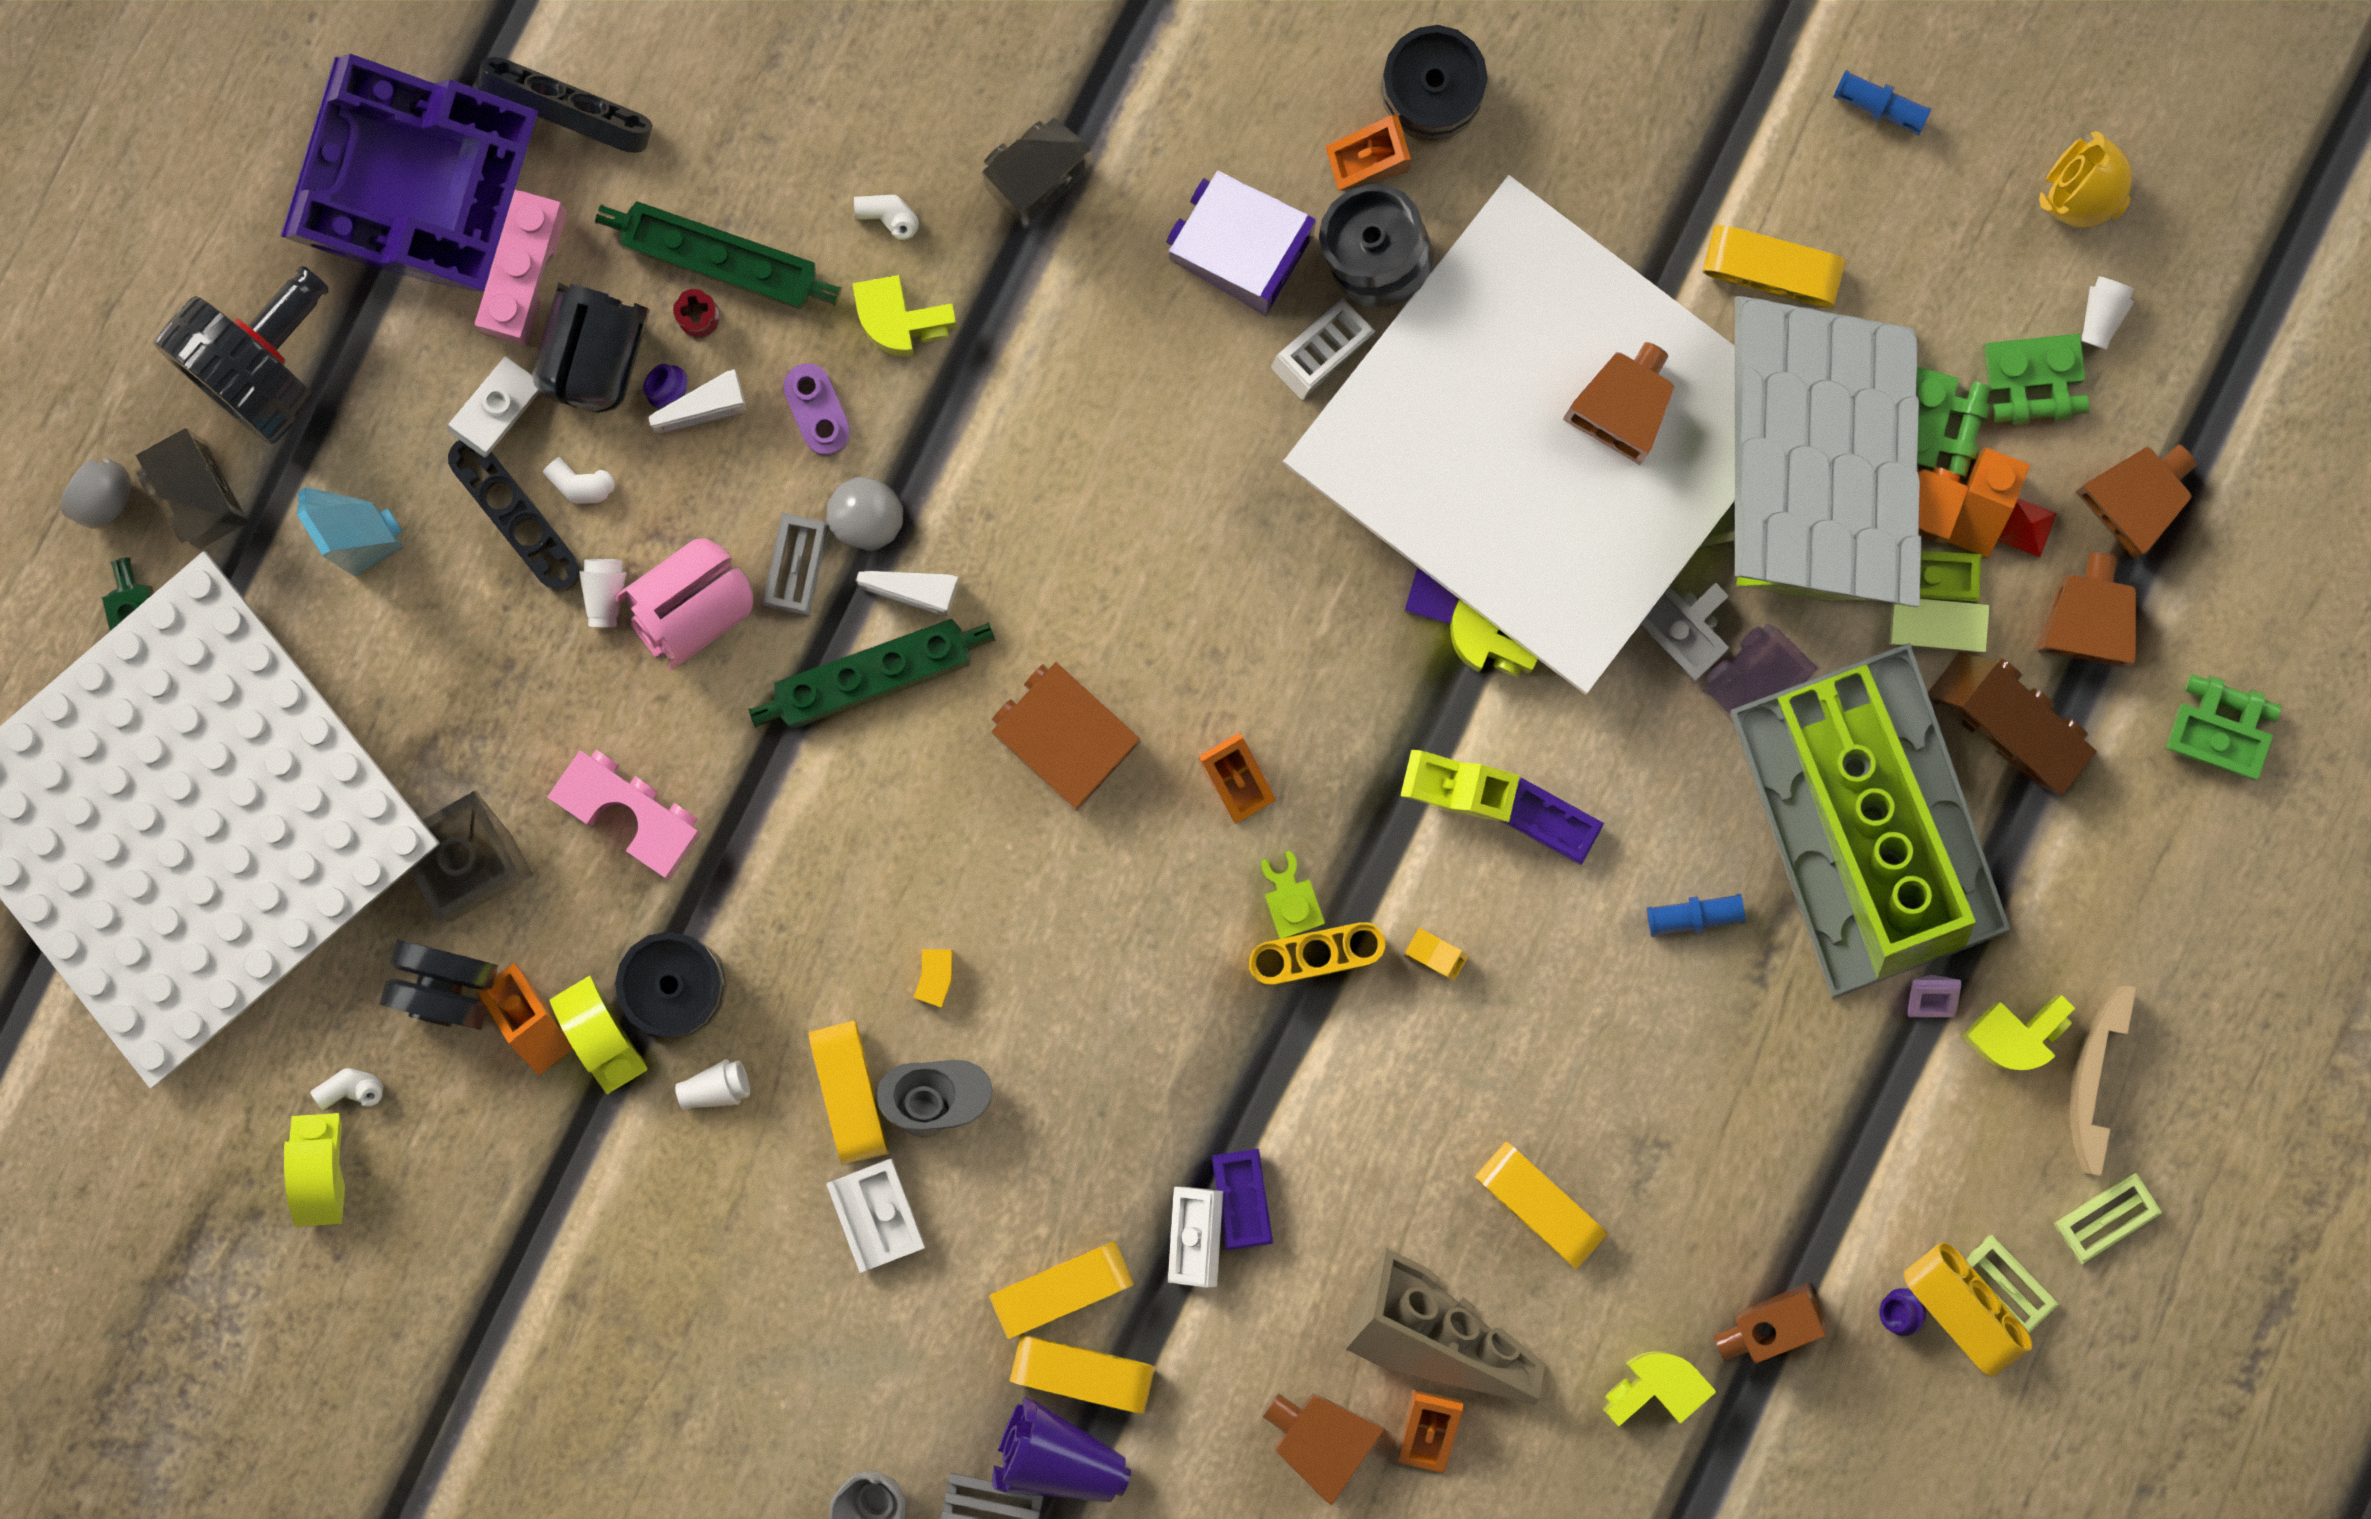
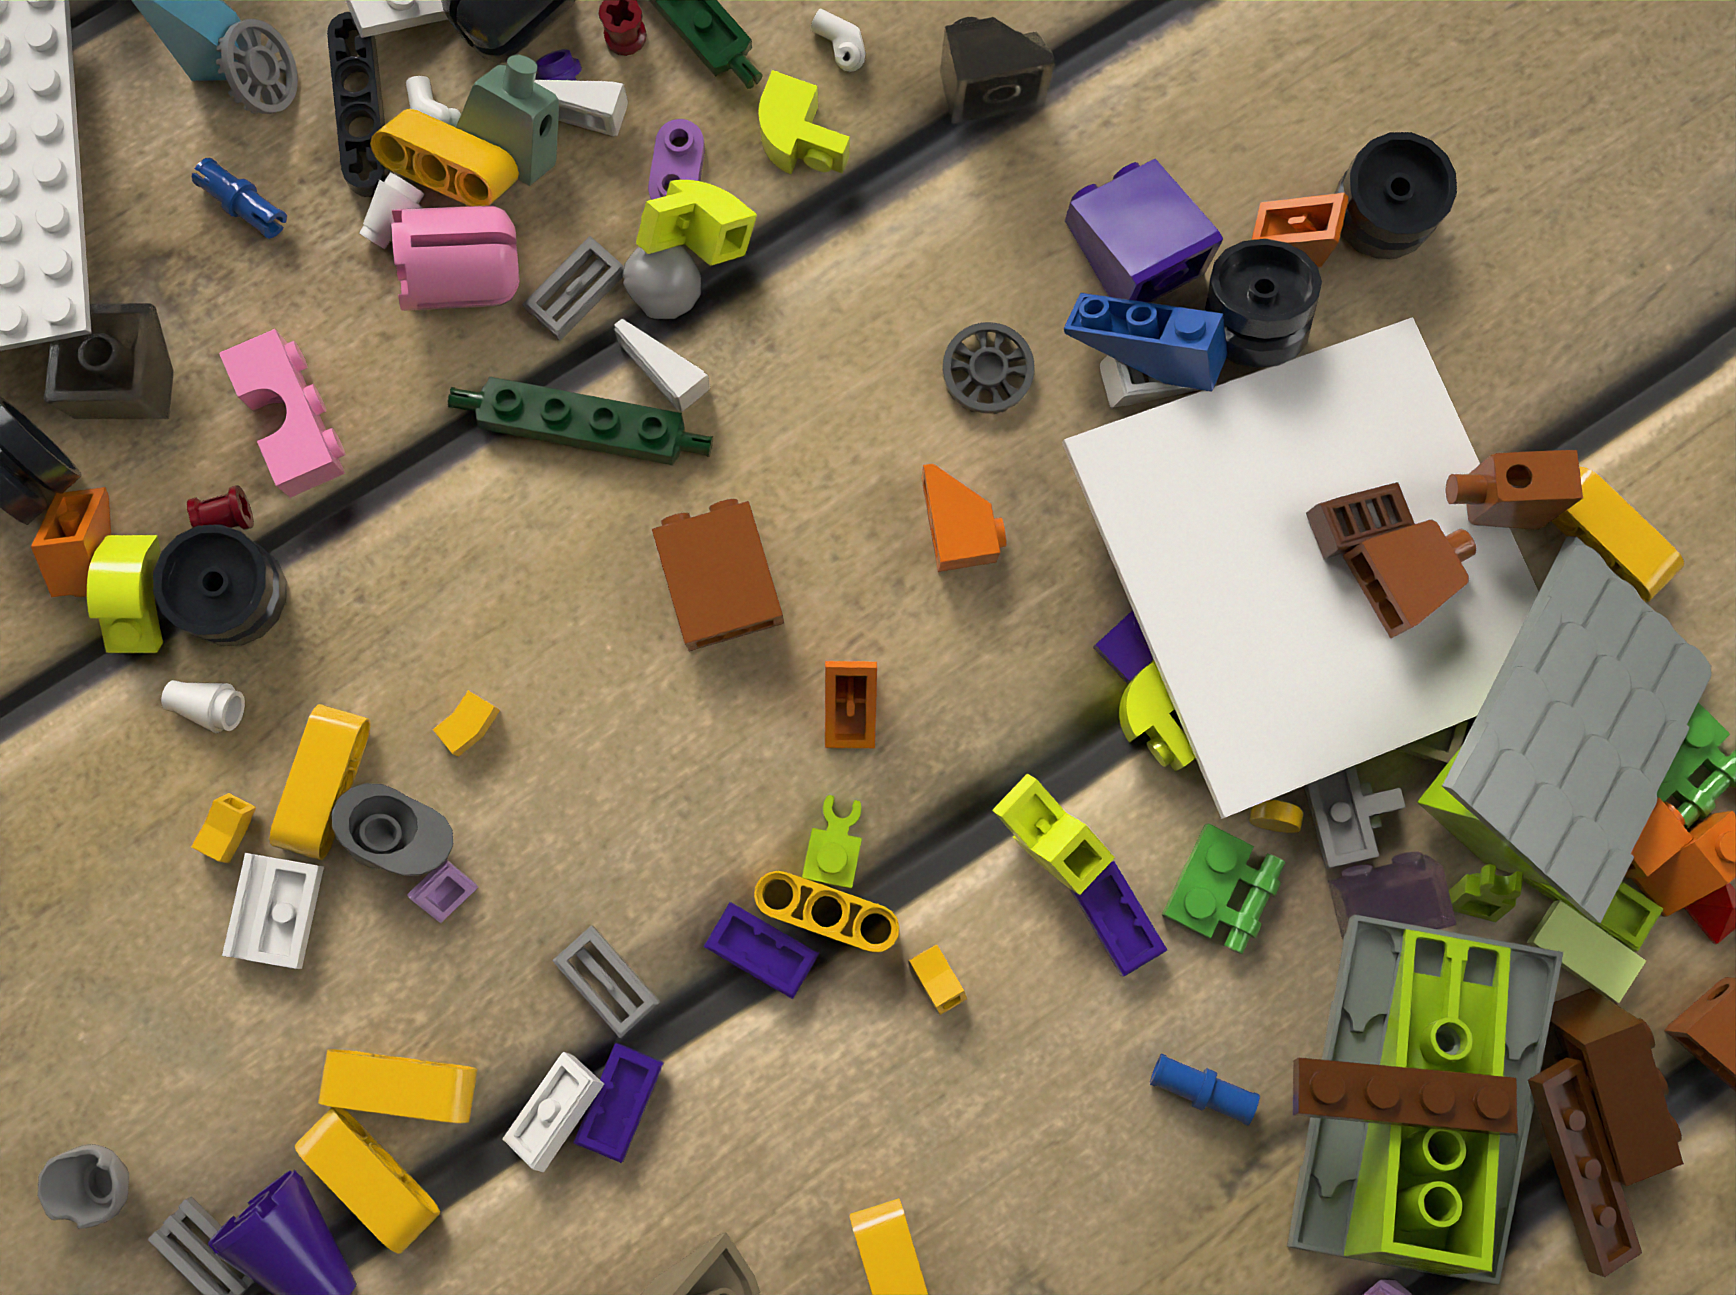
camera: 25 degrees right, 5 degrees down
(417, 538) = (257, 66): none -> light grey wheel
(468, 655) = (239, 198): none -> blue pin
(624, 522) = (444, 158): none -> yellow beam
(627, 926) = (226, 510): none -> dark red bush
(662, 458) = (515, 115): none -> sand green torso
(794, 1174) = (224, 827): none -> yellow piece
(869, 444) = (701, 218): none -> neon yellow brick
(1000, 1120) = (442, 891): none -> lavender slope
(1181, 427) = (988, 367): none -> dark grey wheel
(1213, 1125) = (635, 1014): none -> light grey tile
(1236, 574) = (960, 522): none -> orange slope
(1282, 1015) = (761, 950): none -> dark purple plate
(1303, 329) = (1159, 340): none -> blue slope
(1538, 407) = (1329, 531): none -> reddish brown slope
(1607, 746) = (1208, 883): none -> bright green plate
(1631, 663) = (1277, 816): none -> yellow tile
(1671, 283) = (1518, 488): none -> dark orange torso
(1830, 629) = (1486, 894): none -> lime plate
(1841, 829) = (1405, 1096): none -> reddish brown plate
(2023, 798) = (1585, 1166): none -> reddish brown plate

